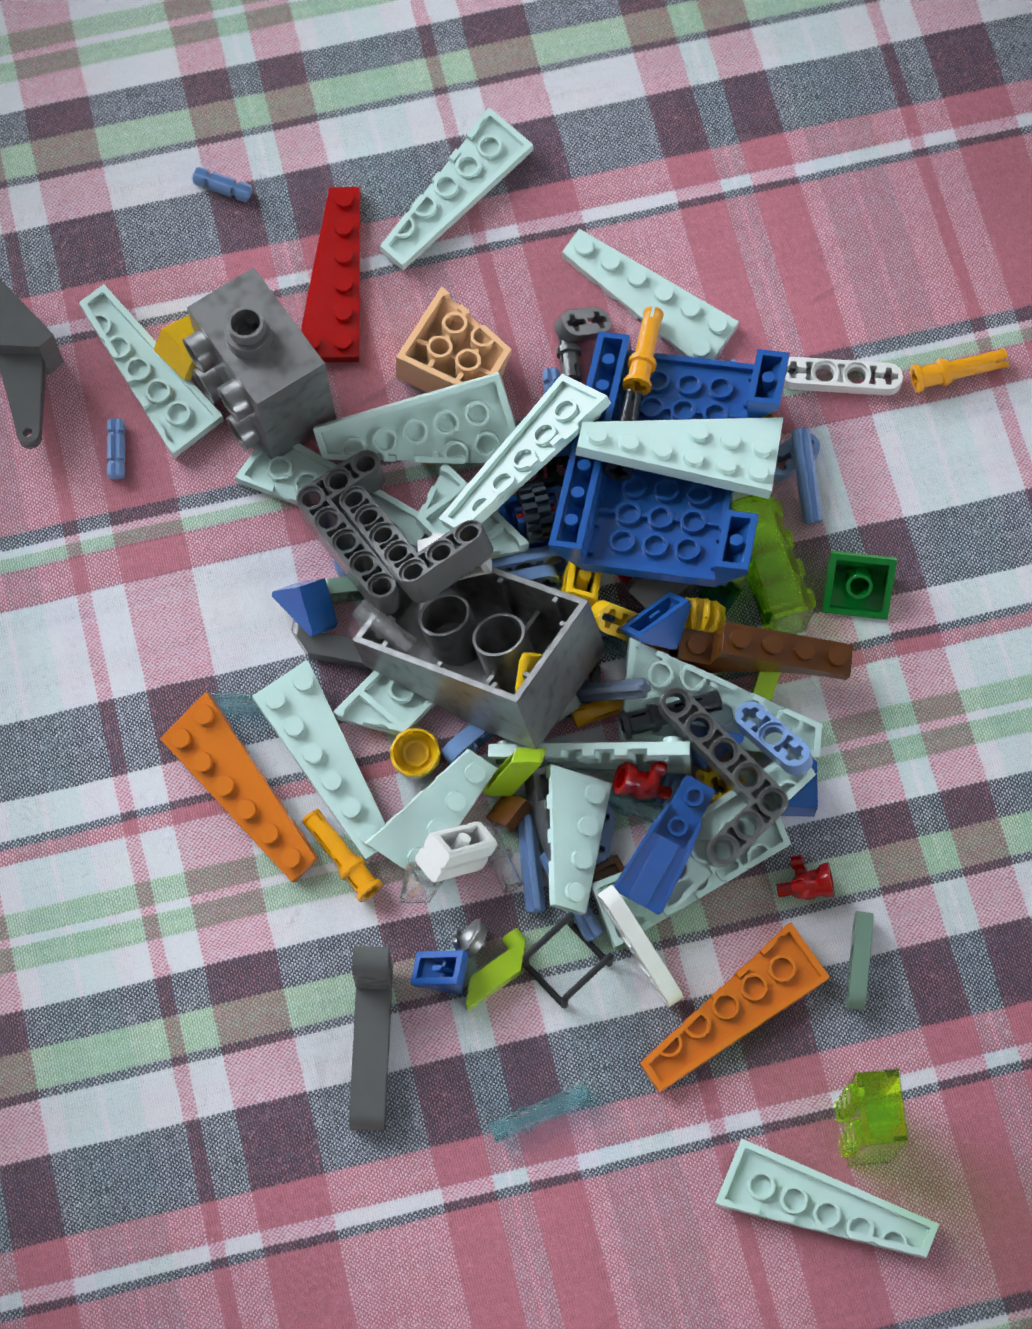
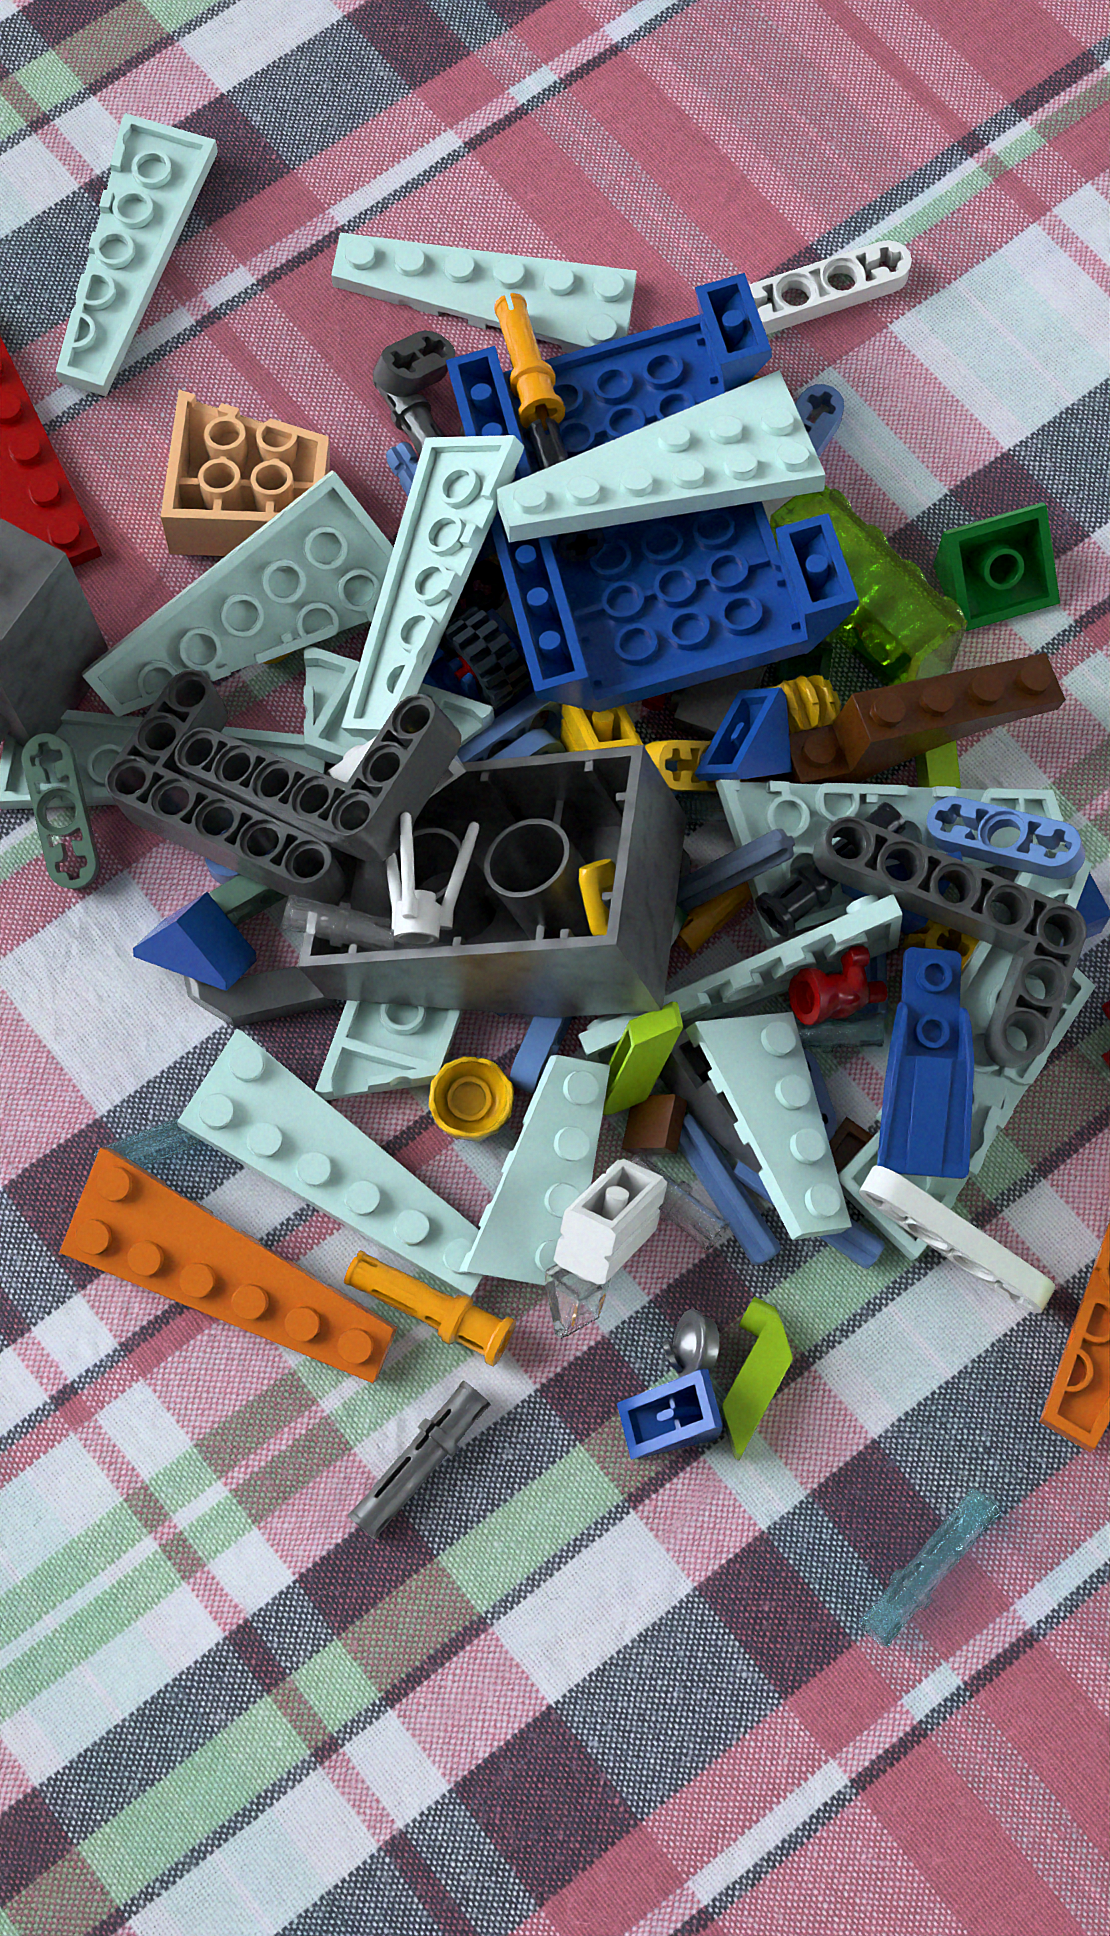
camera: 25 degrees left, 0 degrees up
(257, 521) = (64, 769): none -> sand green beam
(311, 926) = (421, 1457): none -> flat silver pin
(371, 1037) = (648, 1650): dark grey beam -> none
(425, 638) = (415, 912): none -> white plant
(605, 960) = (916, 1288): black piece -> none
(806, 476) = (846, 445): medium blue axle -> none
(945, 371) = (963, 222): light orange pin -> none

